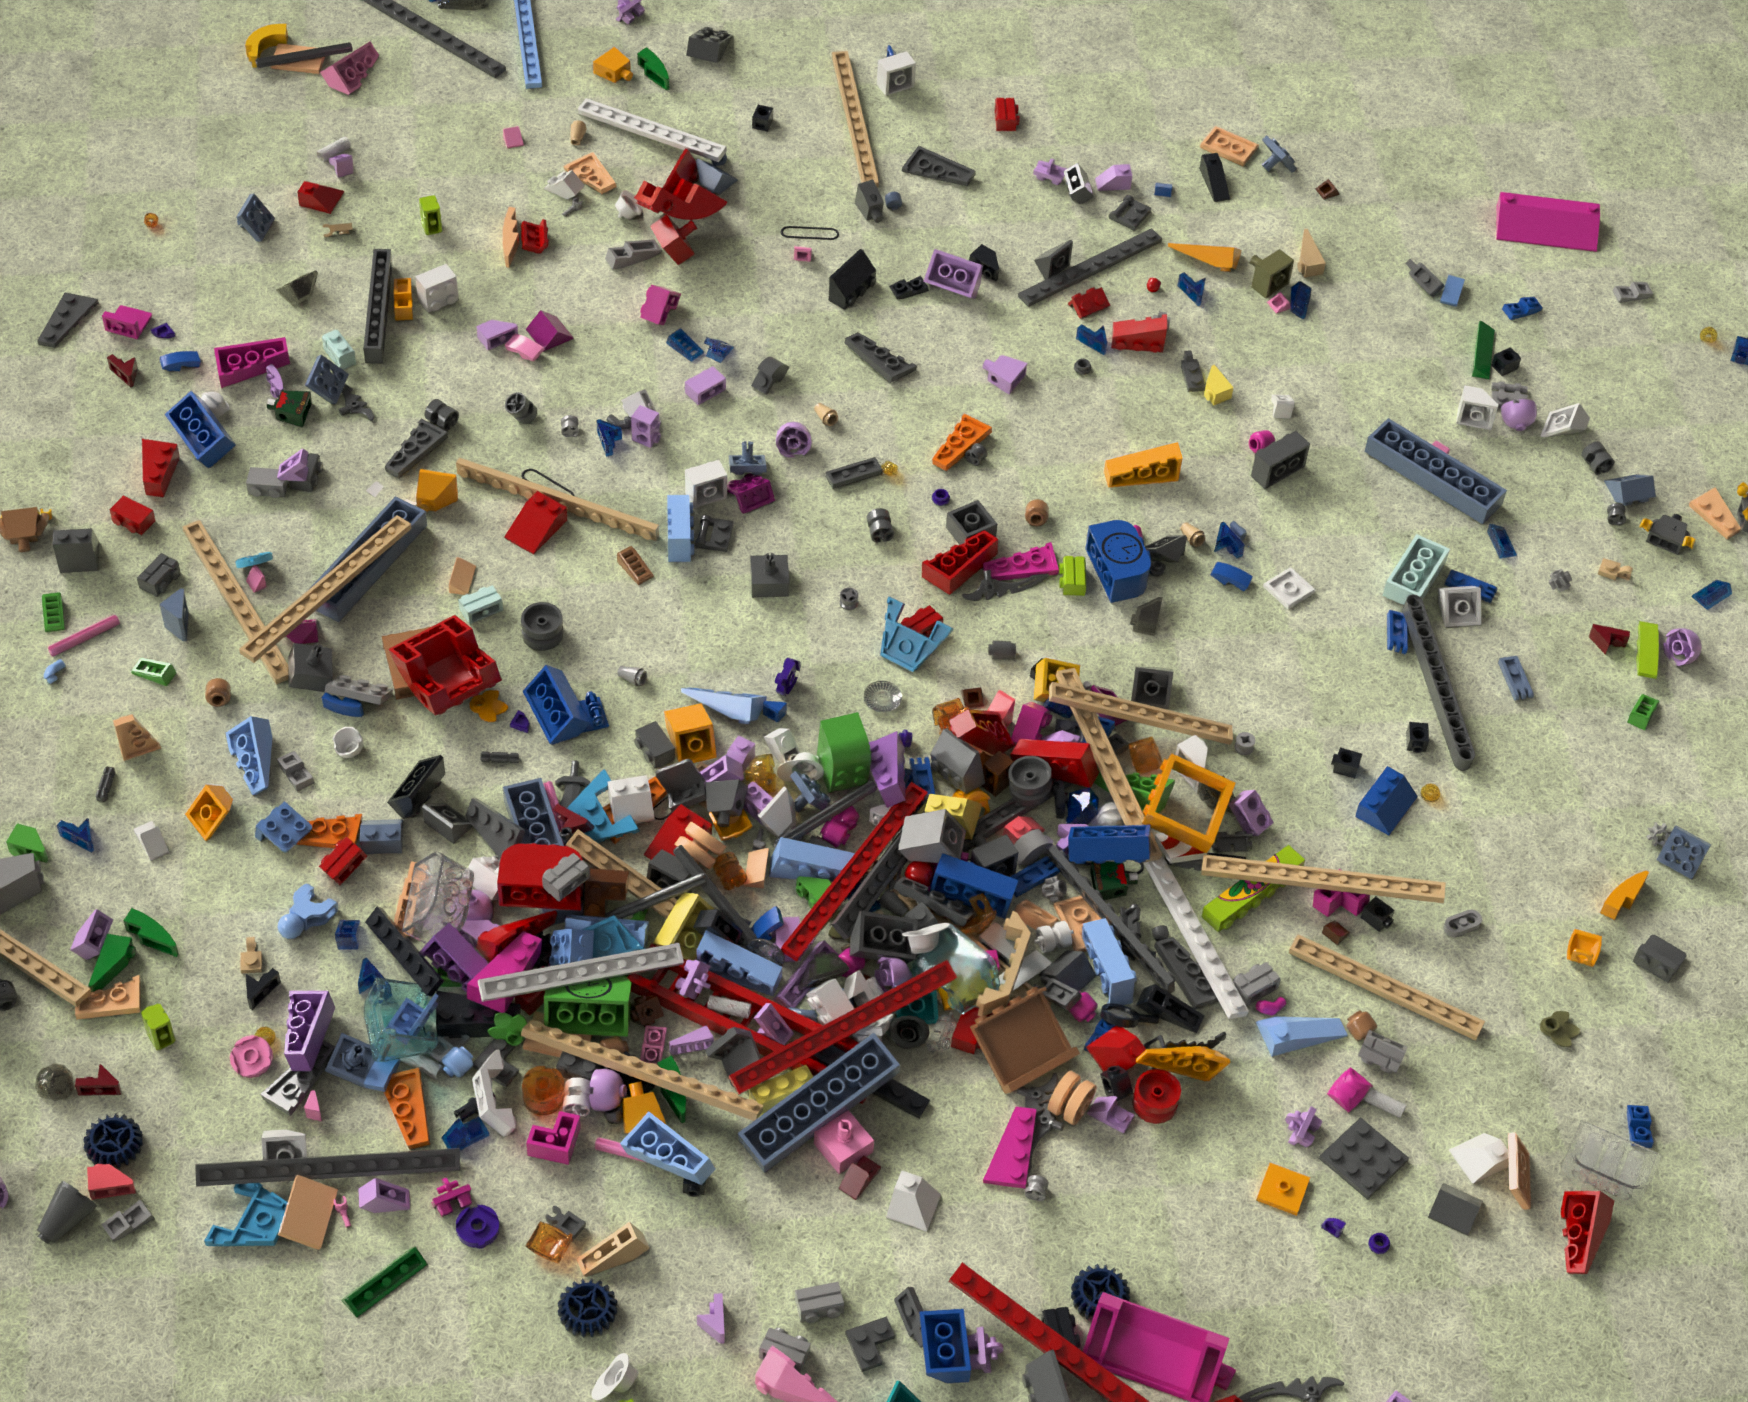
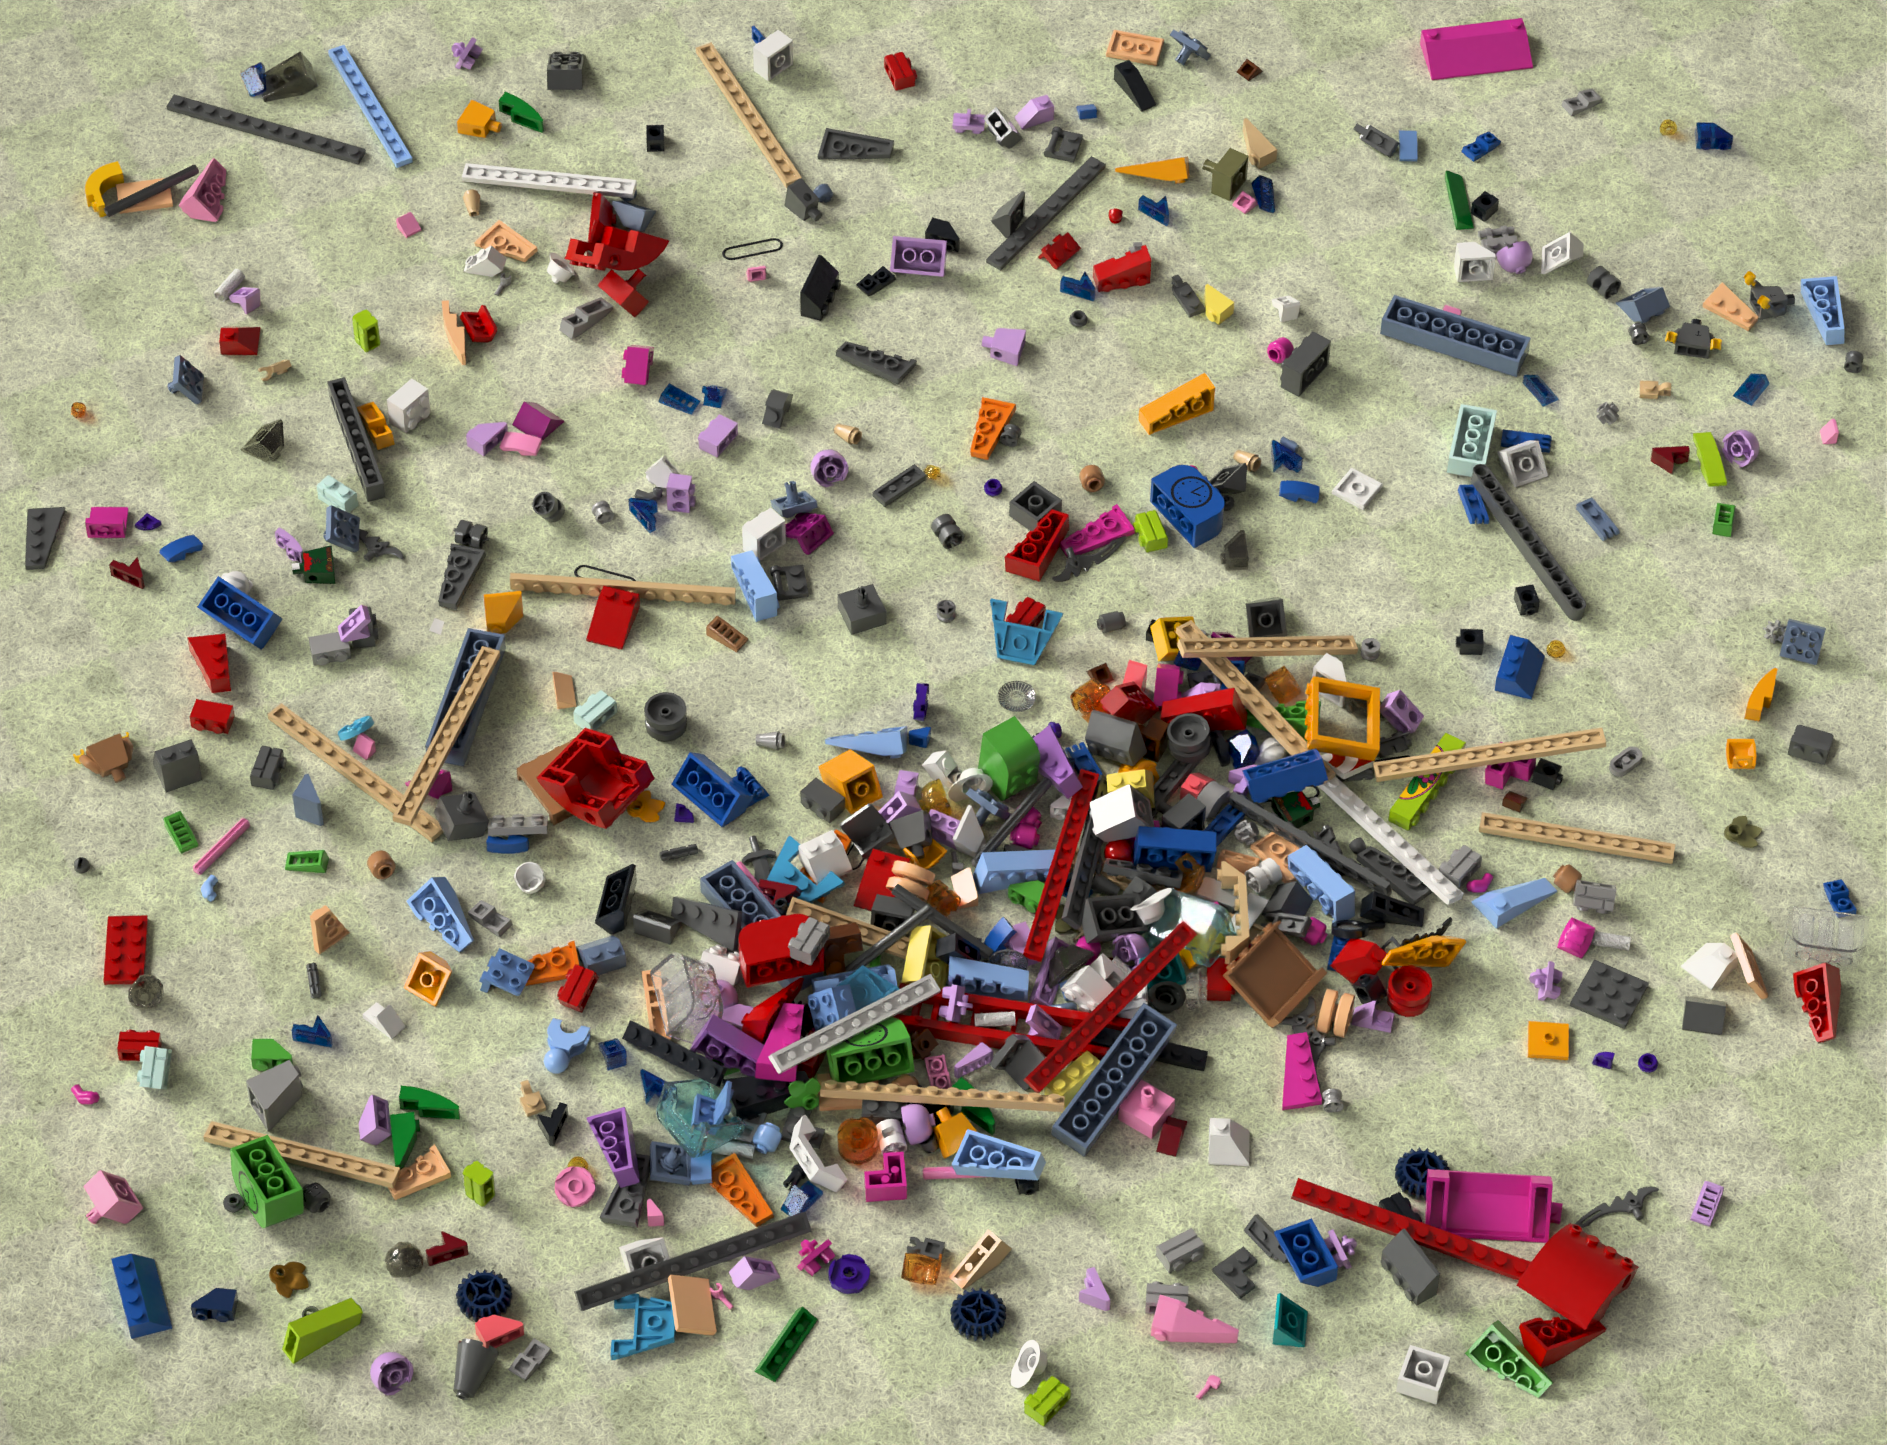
camera: 15 degrees left, 0 degrees up
(250, 359) = (253, 529): dark pink wedge -> none

